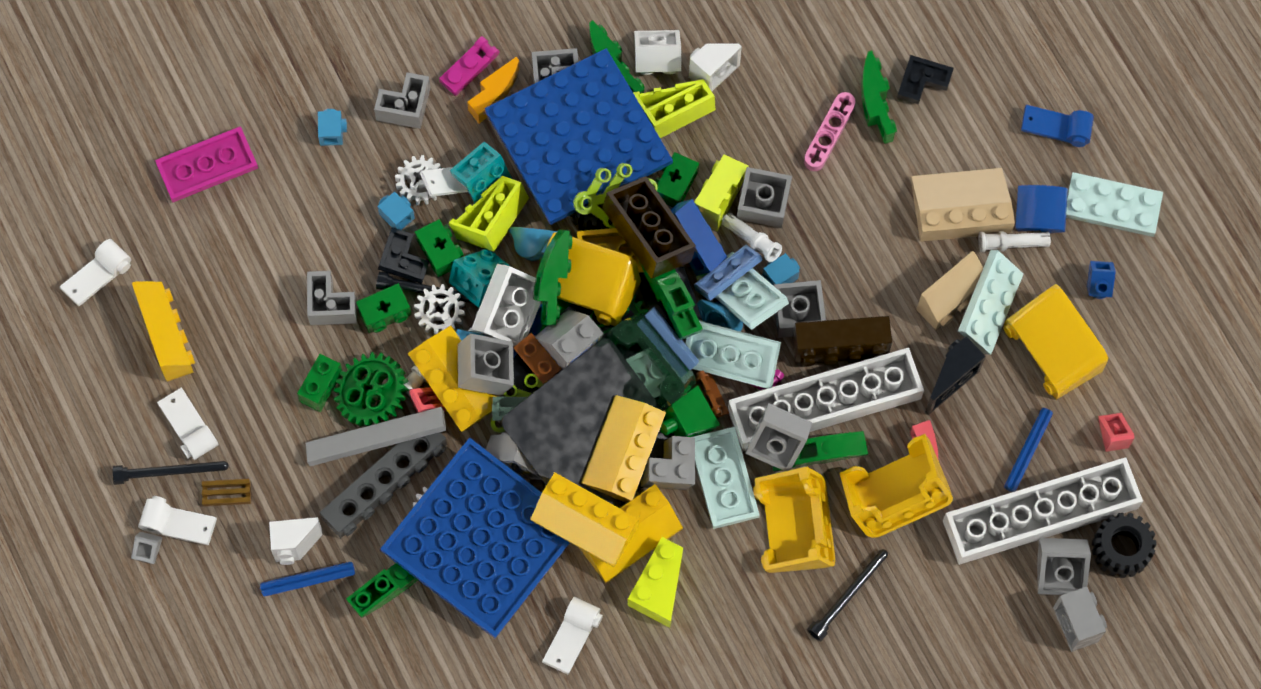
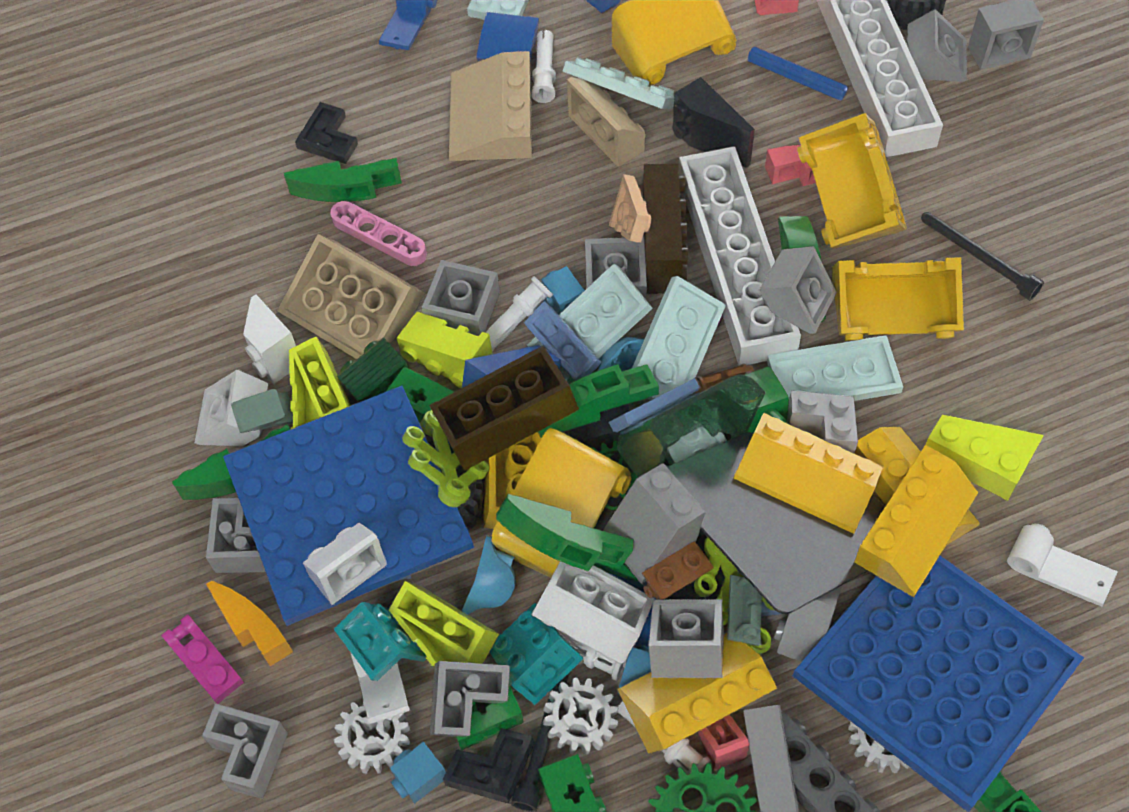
camera: 80 degrees left, 10 degrees down
(443, 223) = (457, 687): none -> light grey brick
(521, 136) = (345, 562): none -> white slope
(652, 70) = (263, 411): none -> sand green slope
(695, 142) = (372, 371): none -> dark green brick
(763, 118) = (348, 298): none -> tan slope
(845, 311) = (630, 211): none -> light nougat wing

